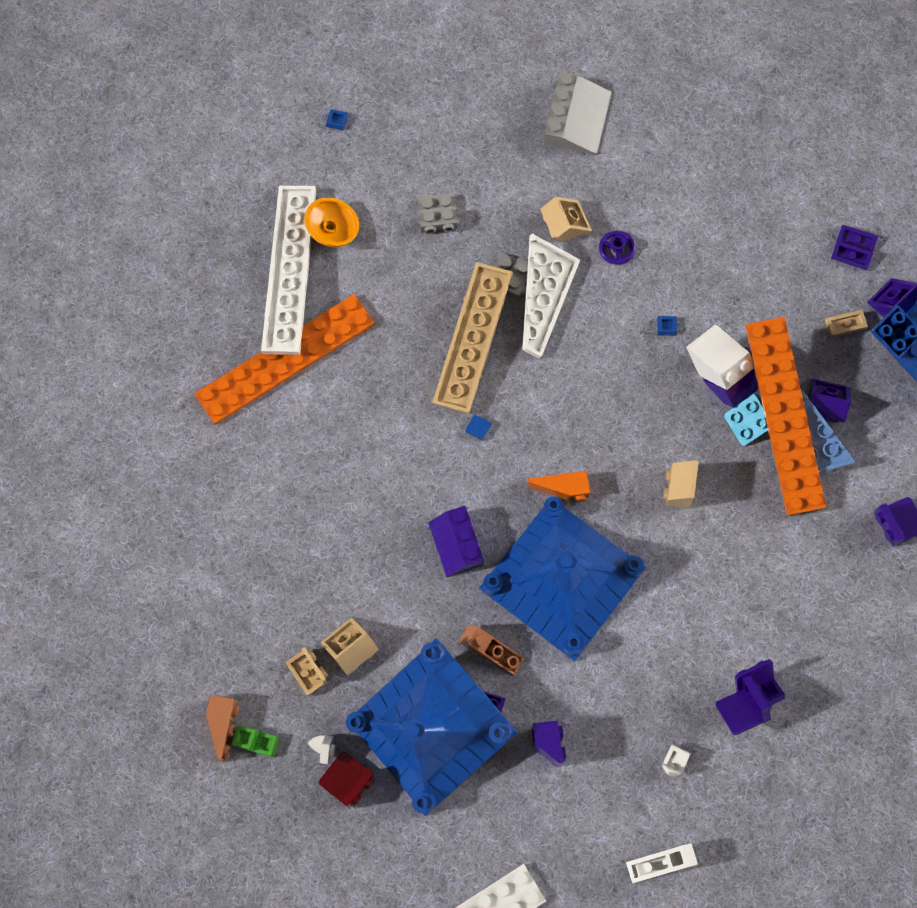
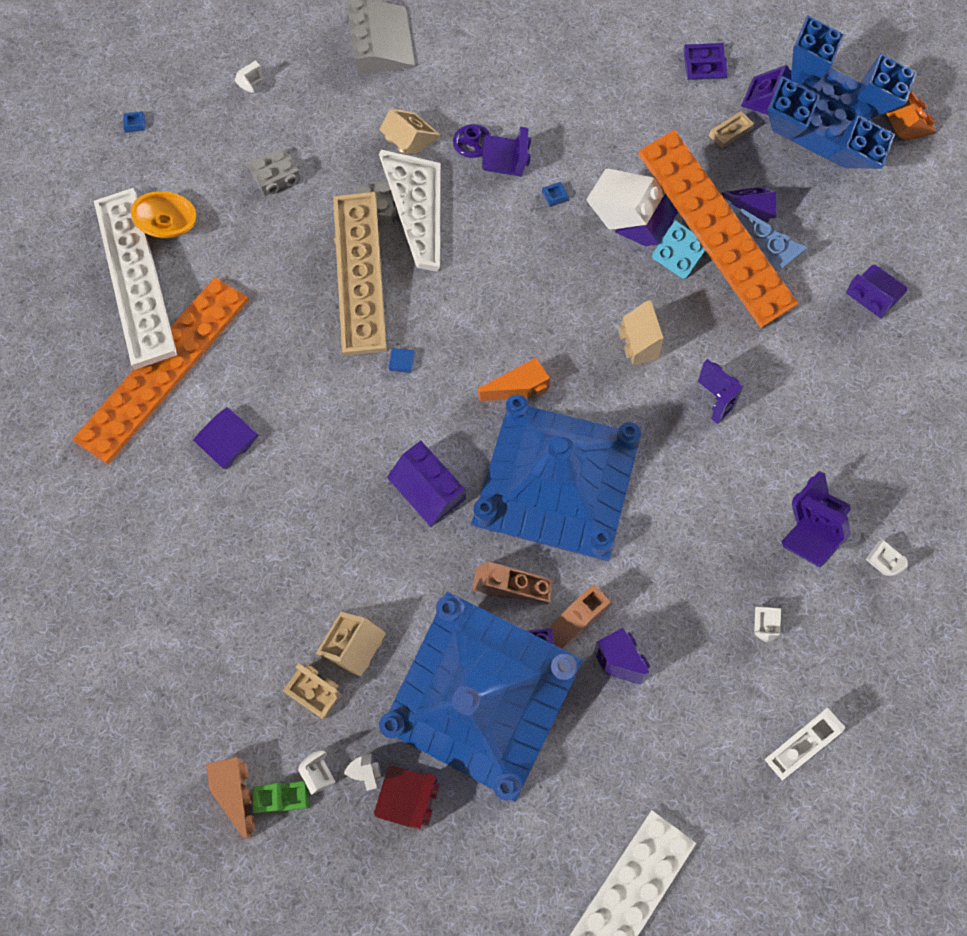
camera: 20 degrees left, 5 degrees down
(287, 733) = (315, 772): none -> white plate
(314, 439) = (225, 437): none -> dark purple slope
(447, 113) = (249, 76): none -> white plate
(530, 697) = (579, 616): none -> nougat slope
(639, 273) = (506, 154): none -> dark purple bracket
(730, 559) = (724, 387): none -> dark purple bracket
(794, 749) = (887, 559): none -> white plate

